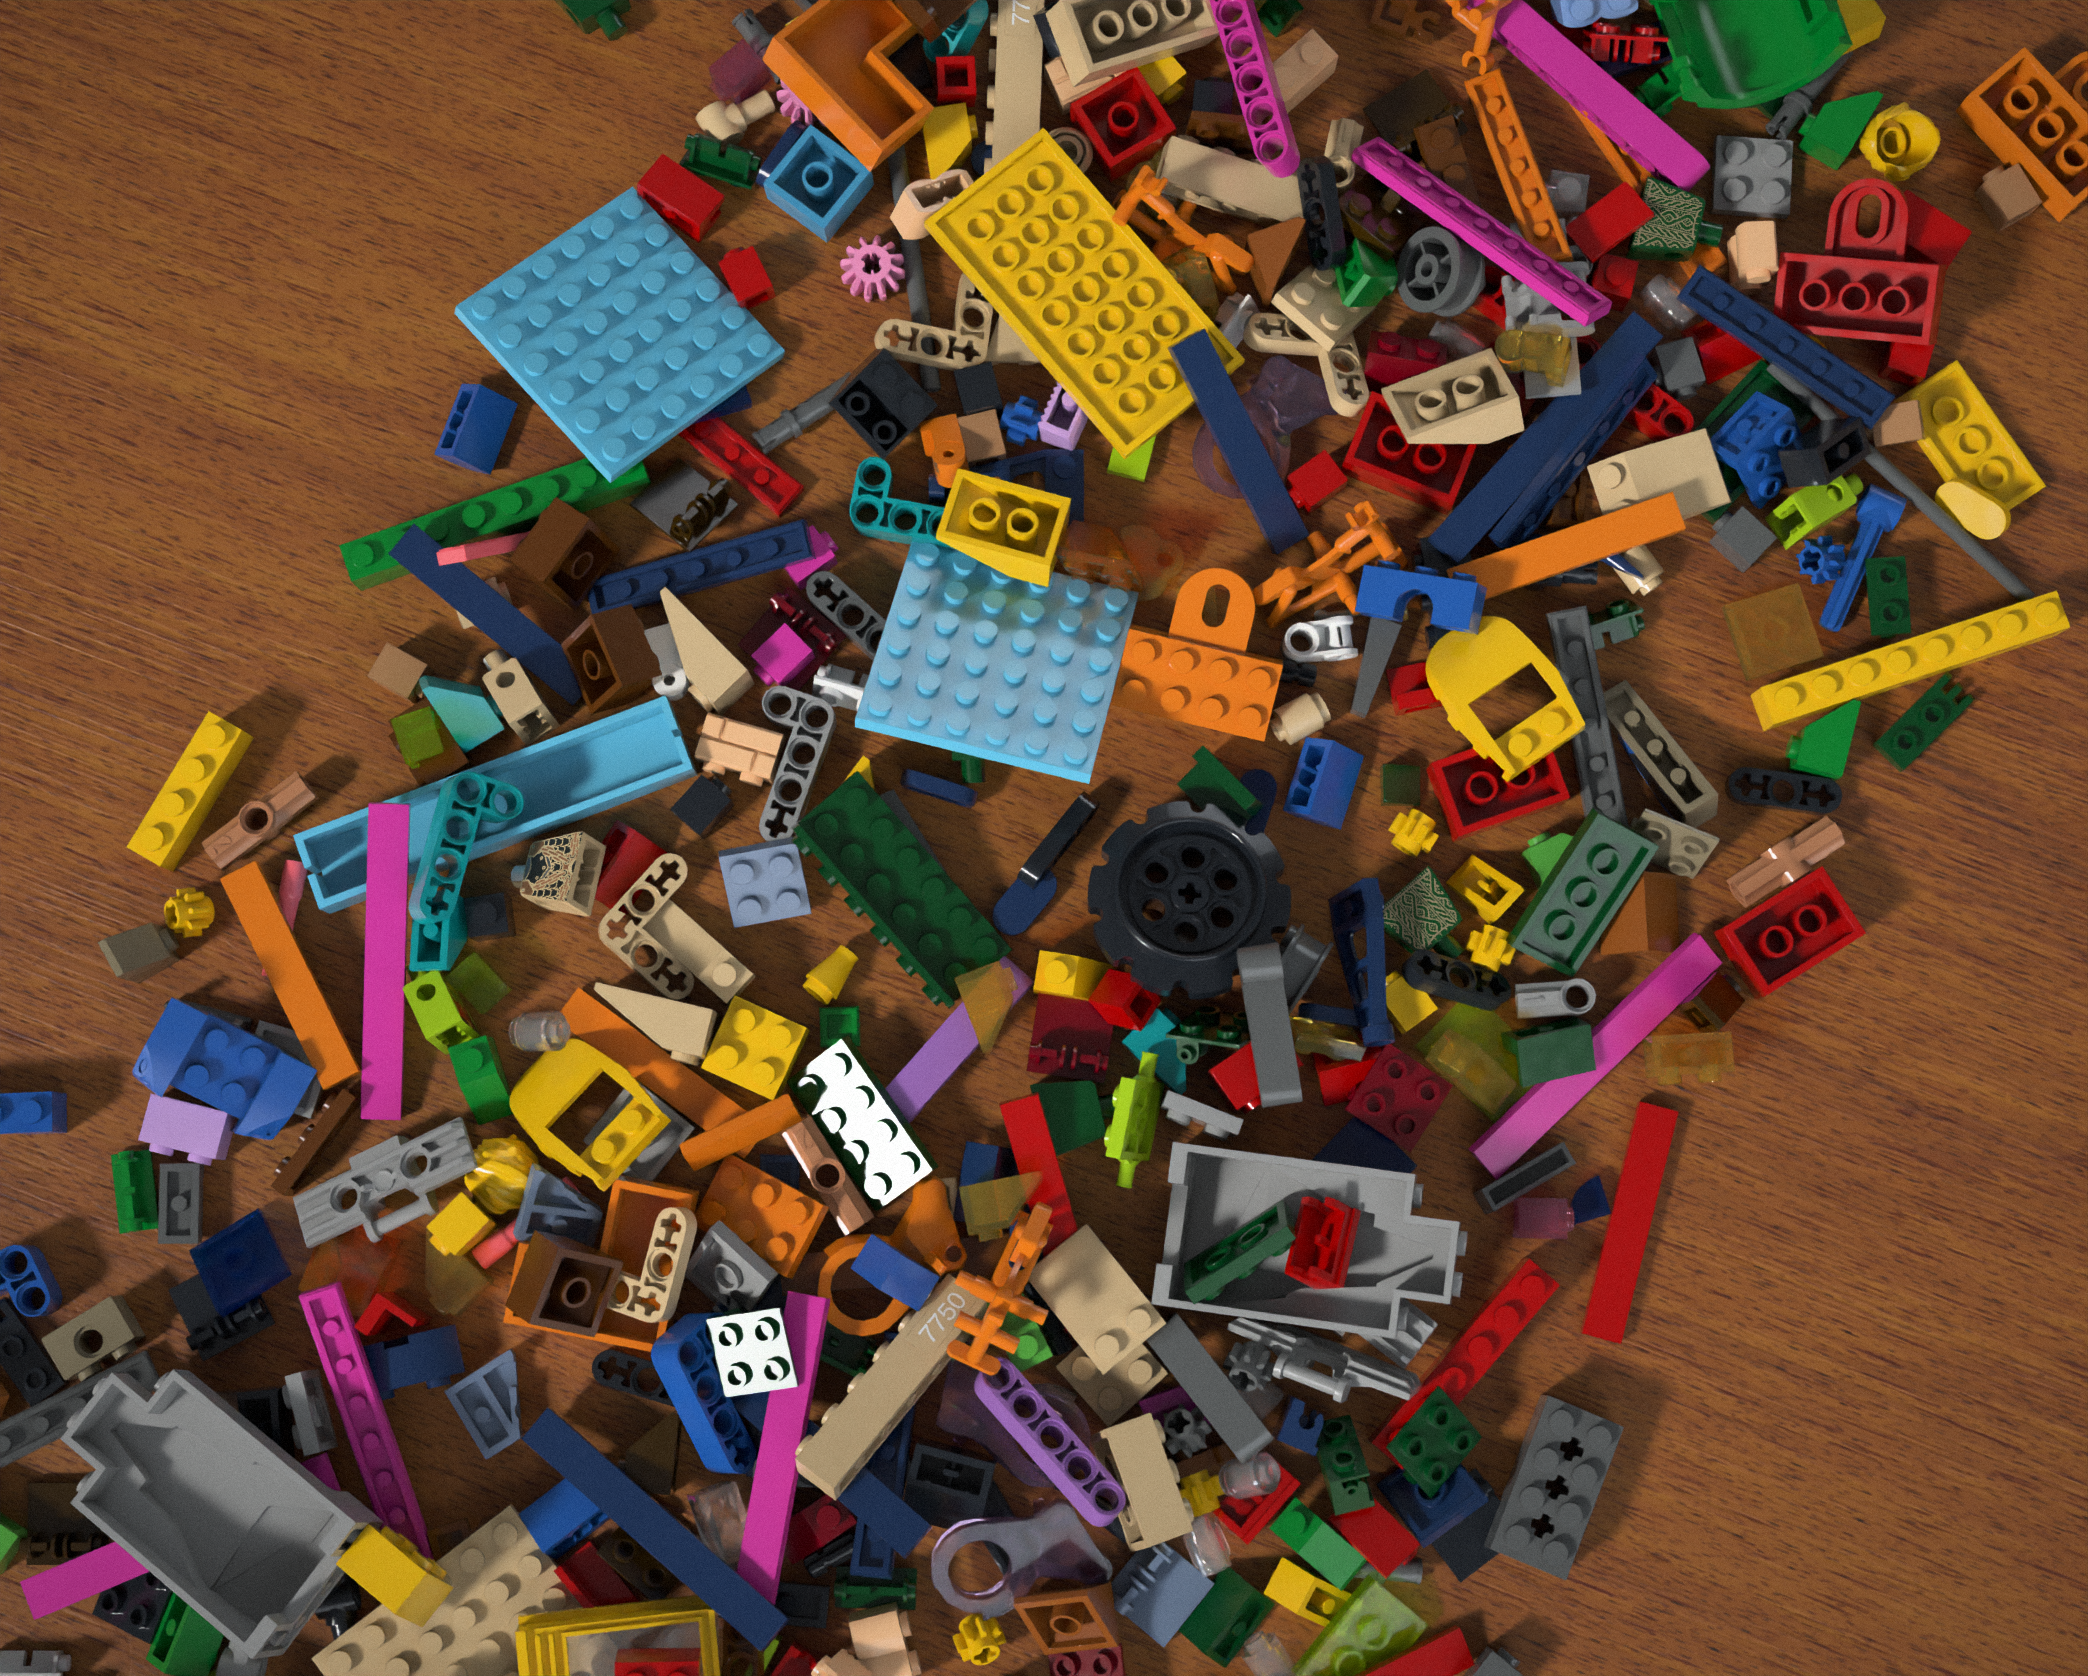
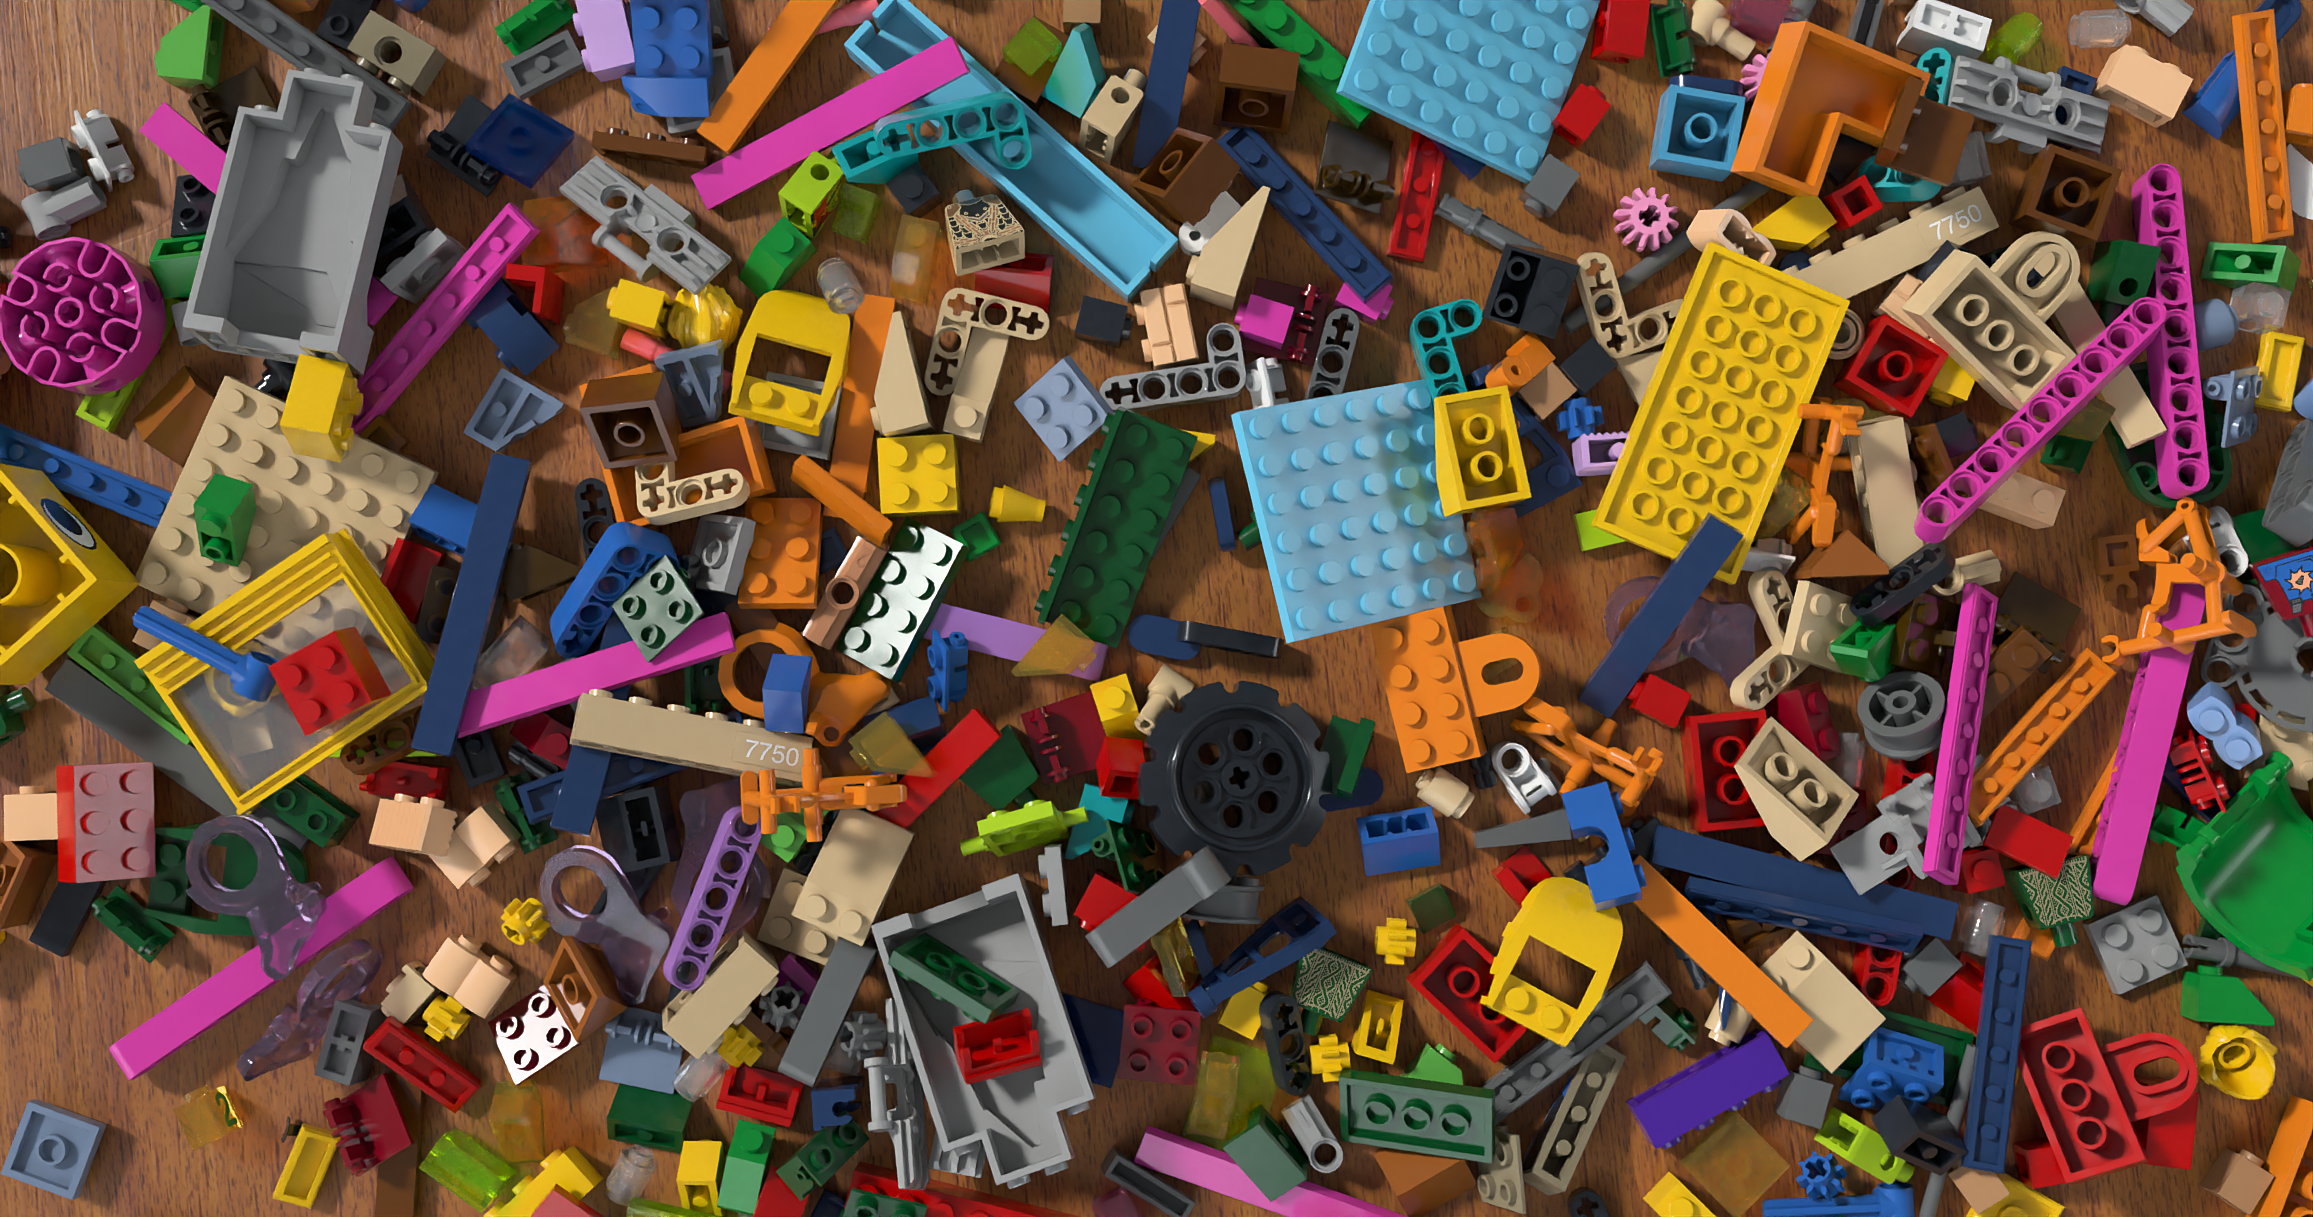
camera: 55 degrees right, 5 degrees up
(551, 949) = (915, 258): none -> clear yellow slope
(796, 340) = (1548, 187): none -> dark grey brick
(960, 1122) = (946, 681): none -> blue hinge
(1076, 926) = (1163, 694): none -> tan pin
(1254, 1478) = (772, 1086): clear brick -> none
(1535, 353) = (1874, 837): clear yellow leg -> none
(1691, 620) = (1707, 1089): none -> dark purple brick
(1752, 256) = (2064, 982): light nougat brick -> none

